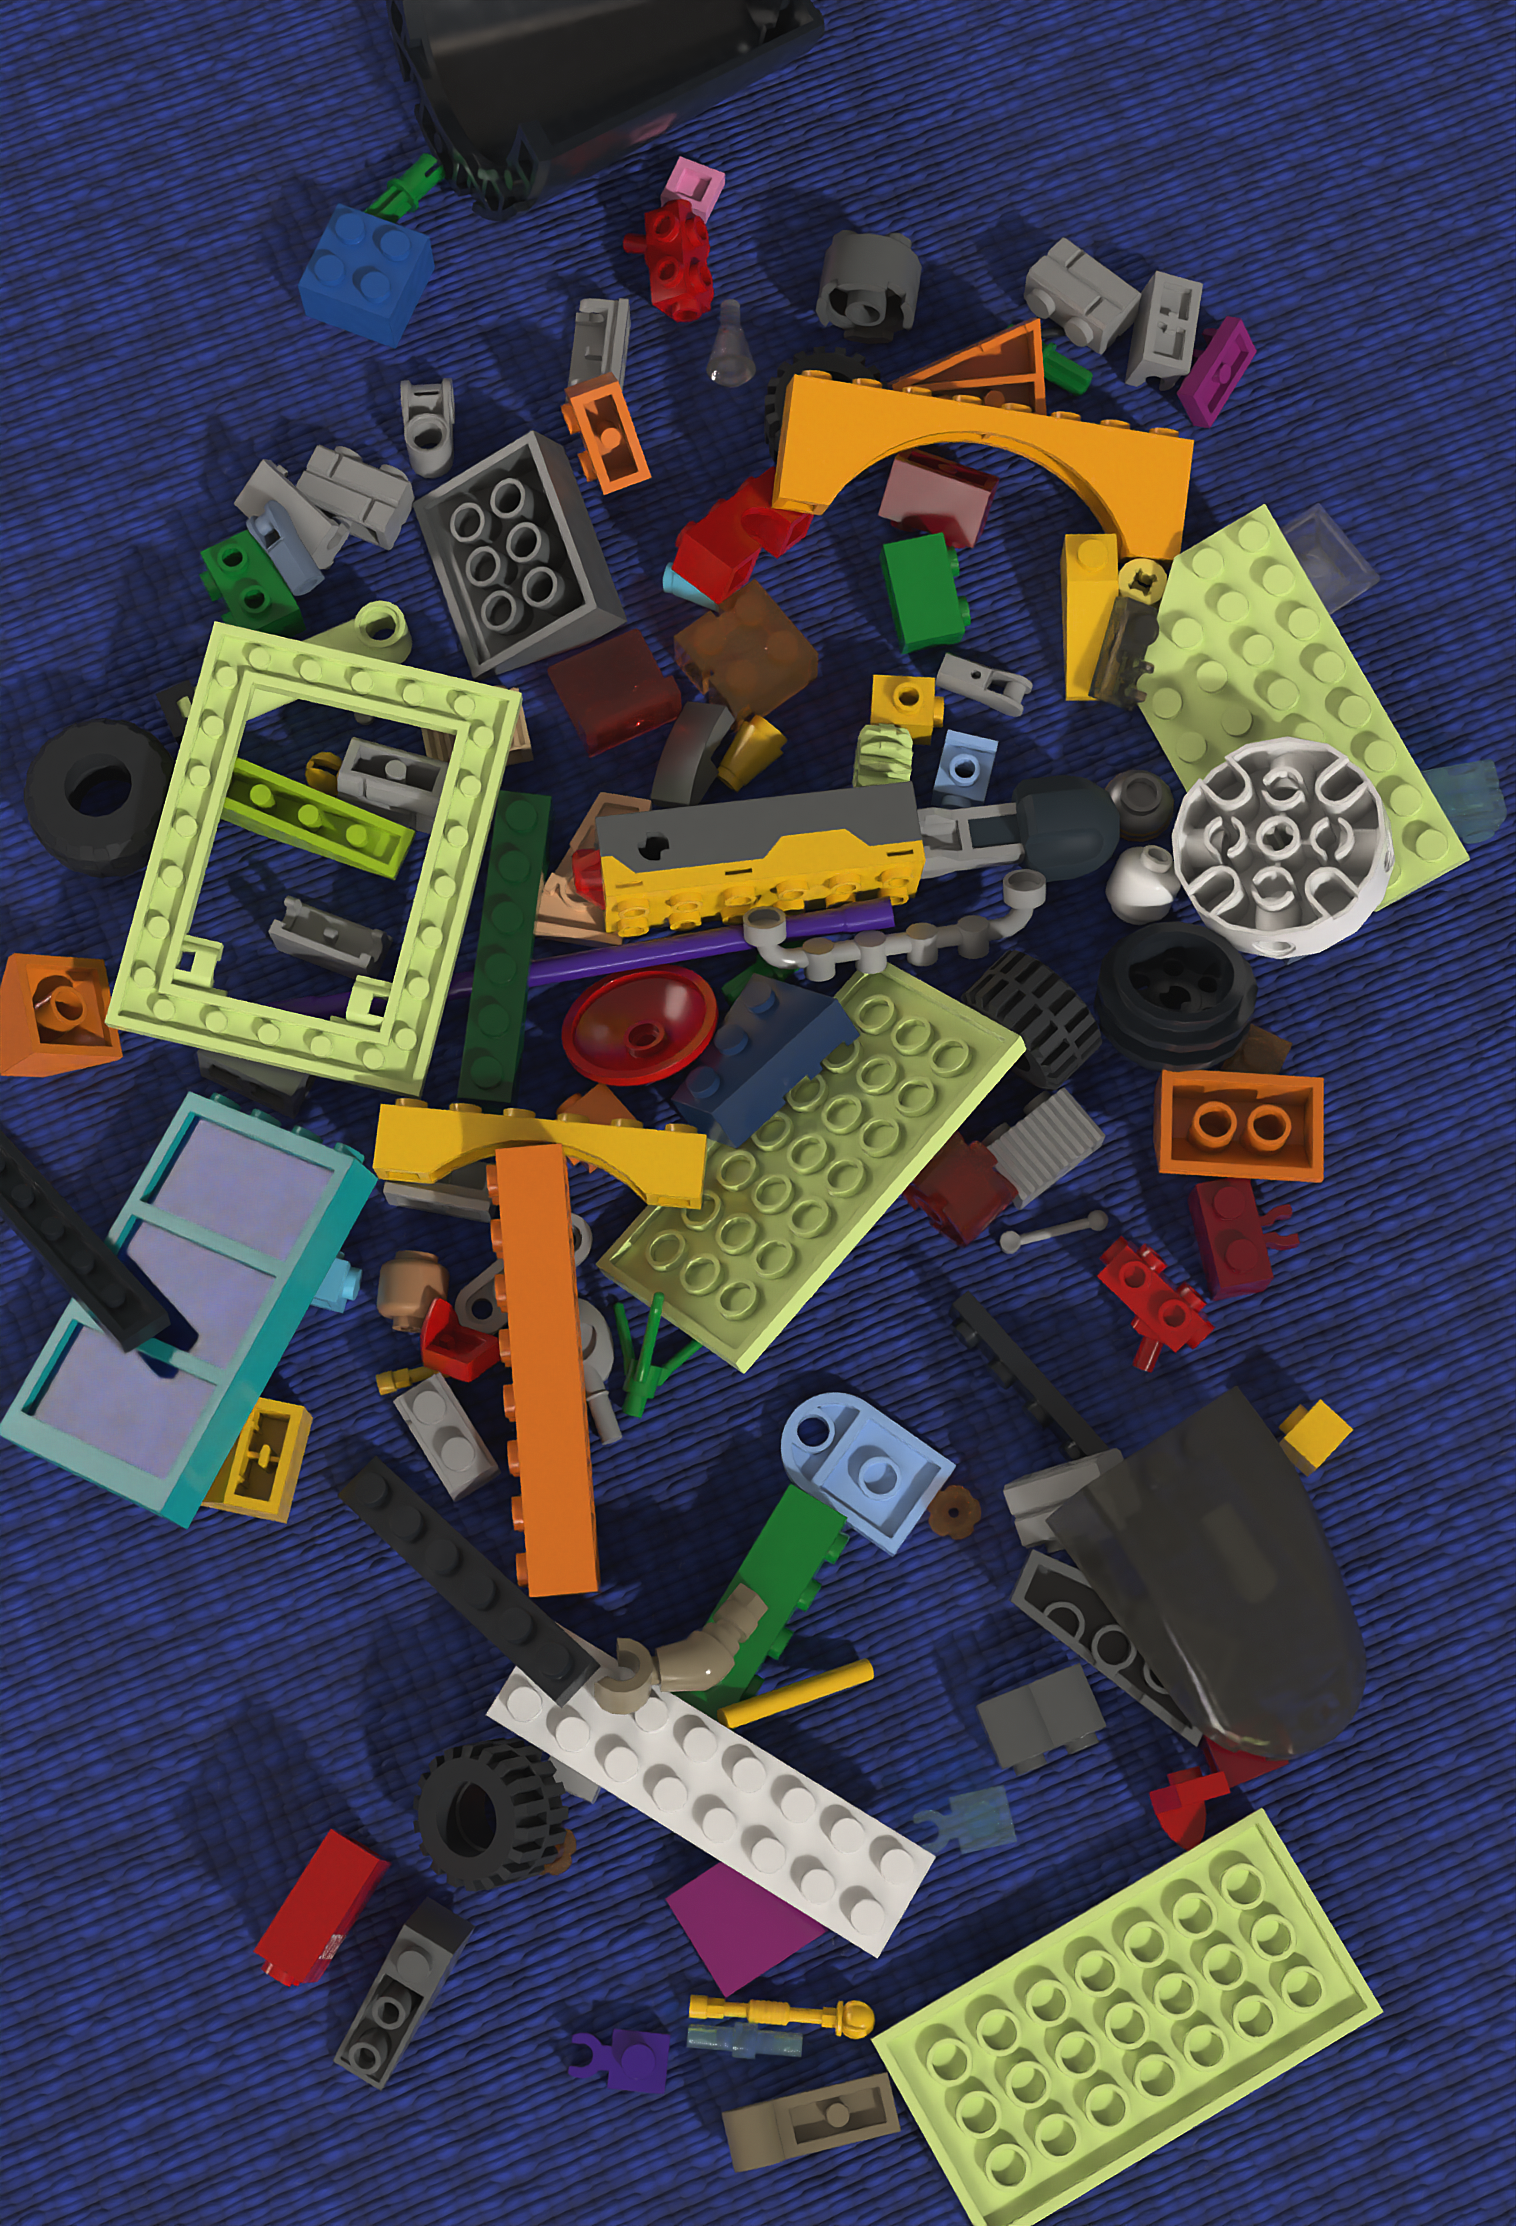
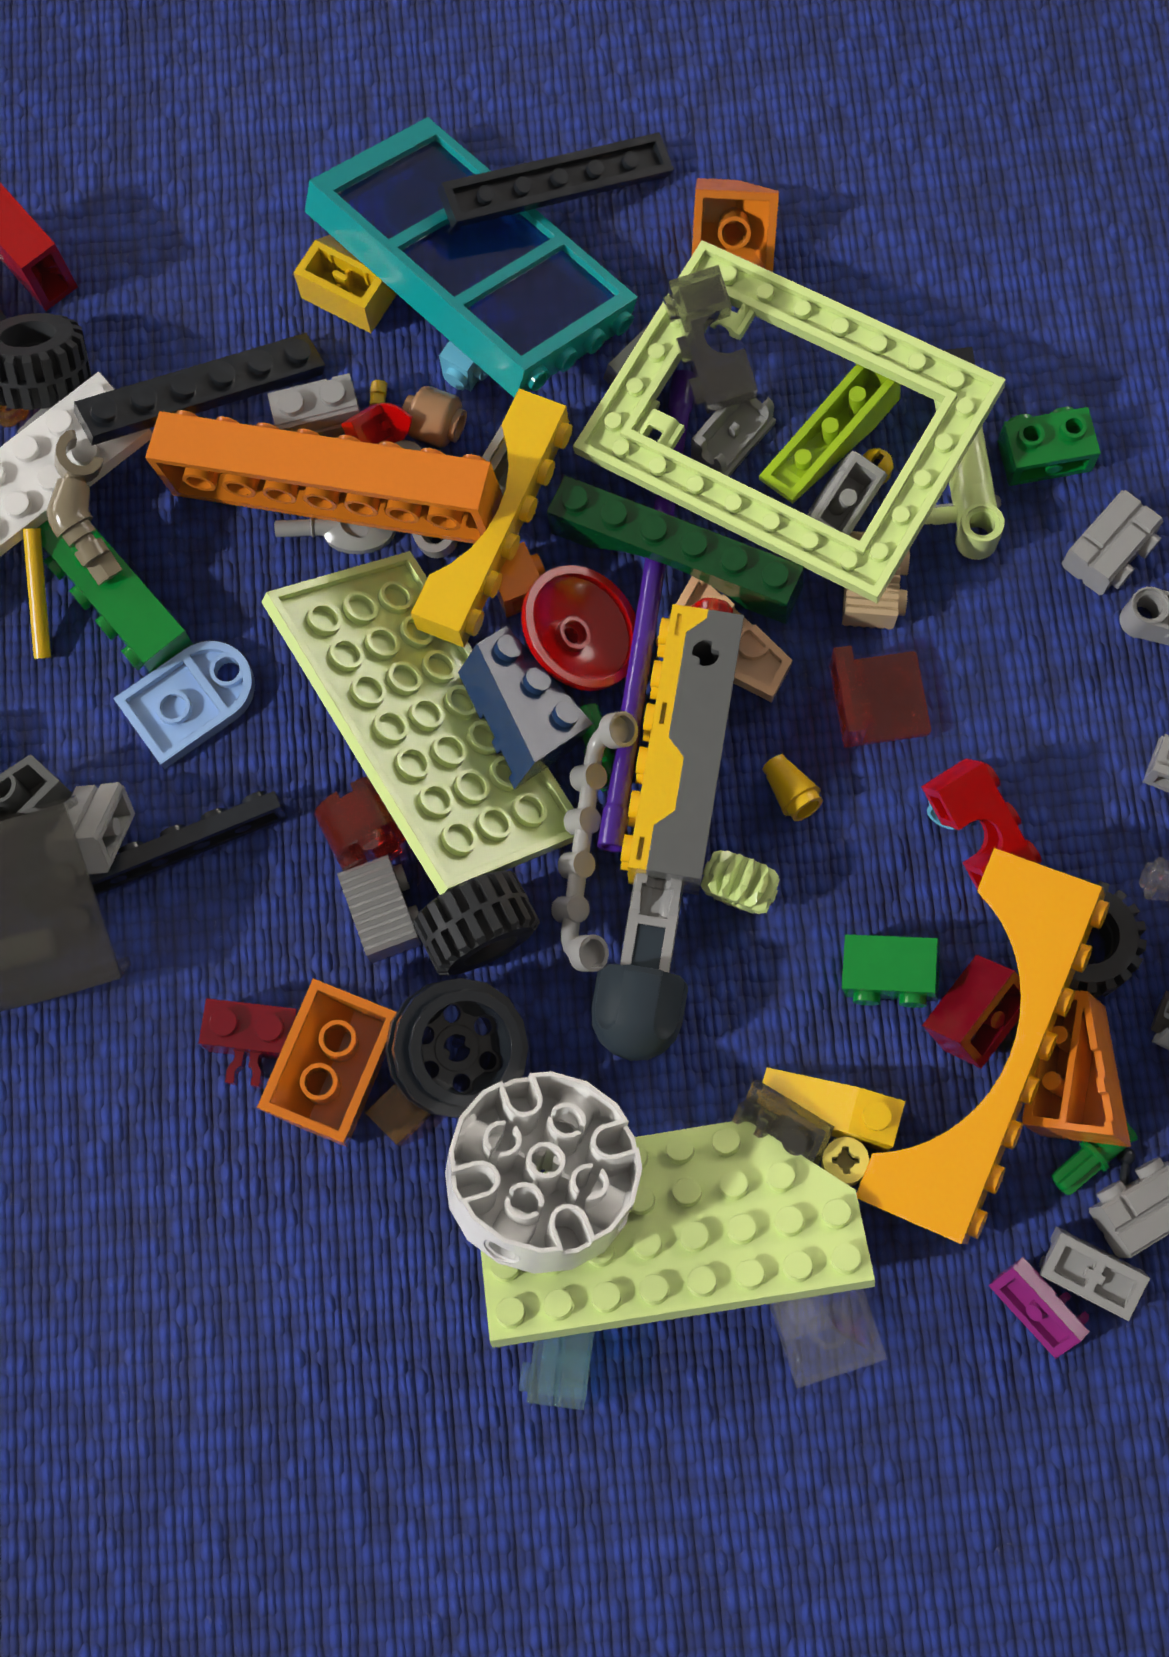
camera: 115 degrees right, 0 degrees up
(73, 765) = (906, 264): black tyre -> none
(211, 989) = (719, 377): none -> clear smoke arch
(287, 552) = (1071, 466): sand blue bar -> none
(318, 533) = (1101, 482): light grey hinge -> none
(519, 558) = (1021, 657): dark grey slope -> none
(607, 433) = (1110, 746): orange brick -> none
(640, 1373) = (316, 562): green plant -> none
(685, 762) = (791, 728): dark grey slope -> none
(751, 650) = (876, 807): clear orange piece -> none
(907, 704) = (791, 922): yellow brick -> none
(958, 1498) = (119, 745): clear orange plate -> none
(966, 755) = (720, 968): light blue brick -> none
(975, 679) = (802, 993): light grey bar -> none
(1011, 1241) = (319, 867): light grey hinge -> none
(1142, 803) = (651, 1095): flat silver piece -> none
(1143, 885) = (571, 1056): white head -> none
(1162, 1309) = (225, 952): red brick -> none
(1312, 1435) = (74, 1039): yellow plate -> none

